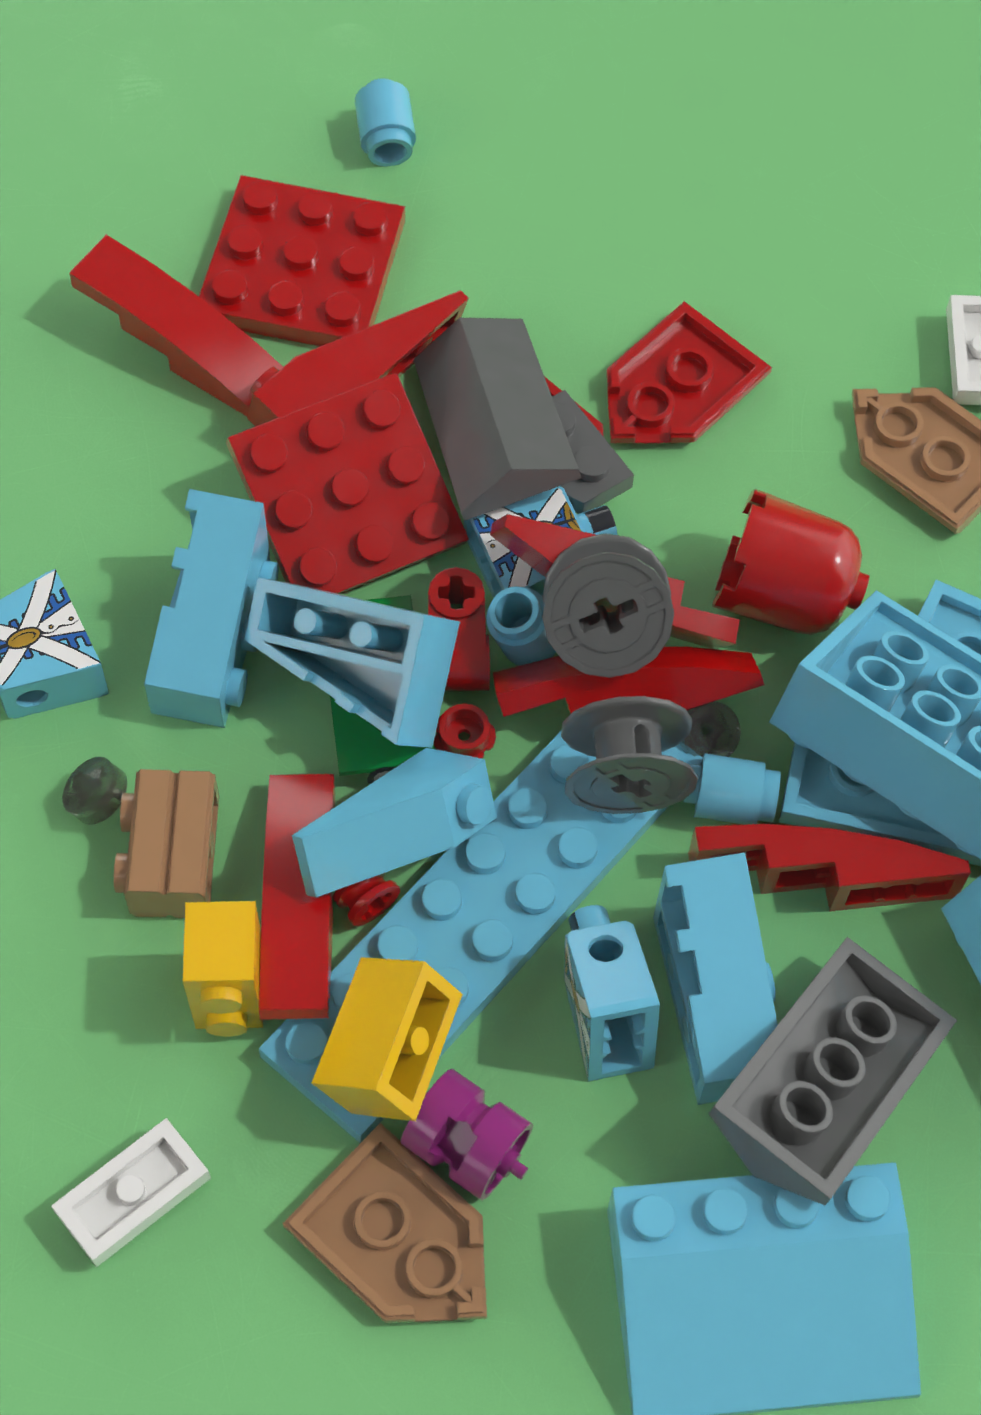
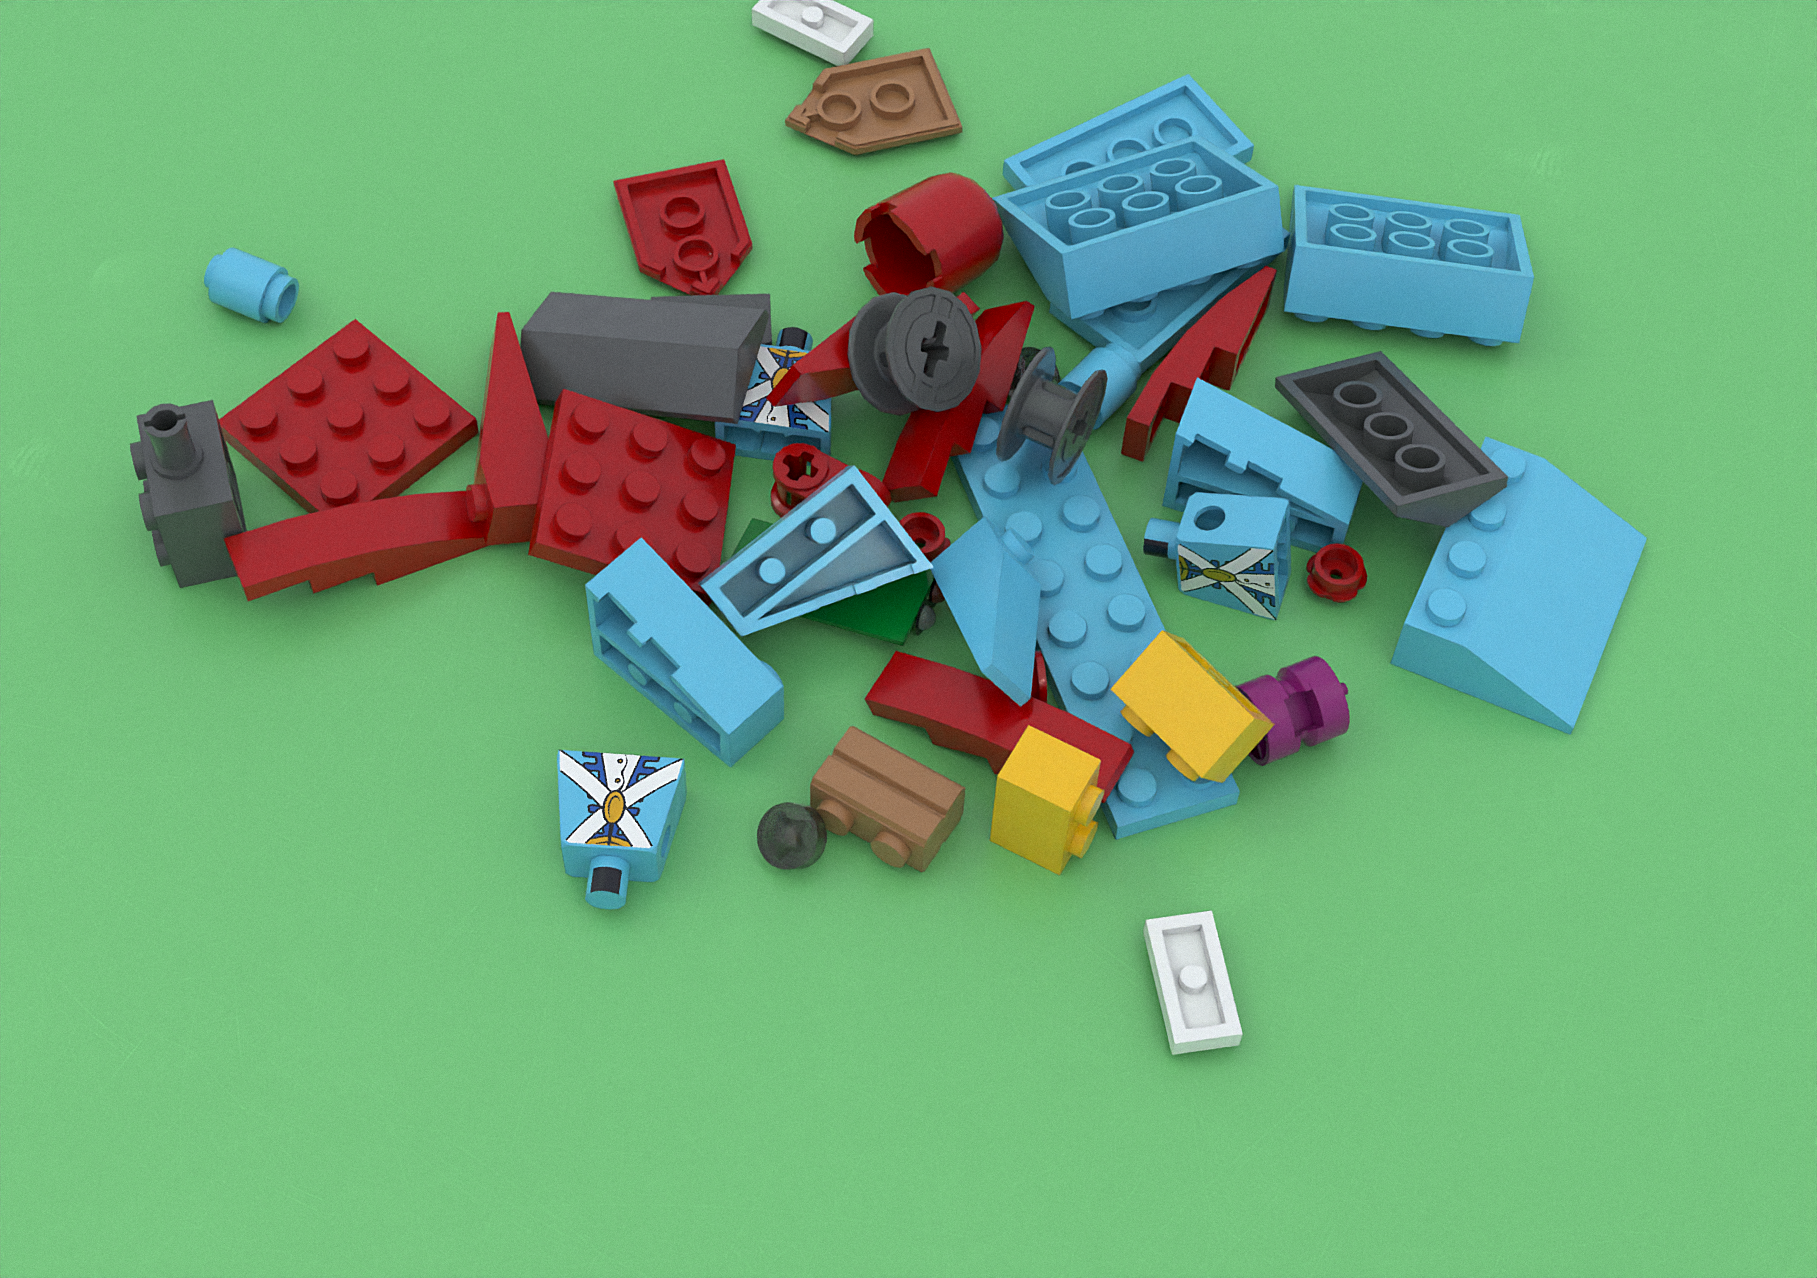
camera: 60 degrees left, 5 degrees down
(143, 184) = (188, 490): none -> dark grey brick
(396, 1235) = (1332, 811): medium nougat tile -> none
(518, 625) = (861, 437): medium azure brick -> none
(672, 1091) = (1340, 561): none -> red plate

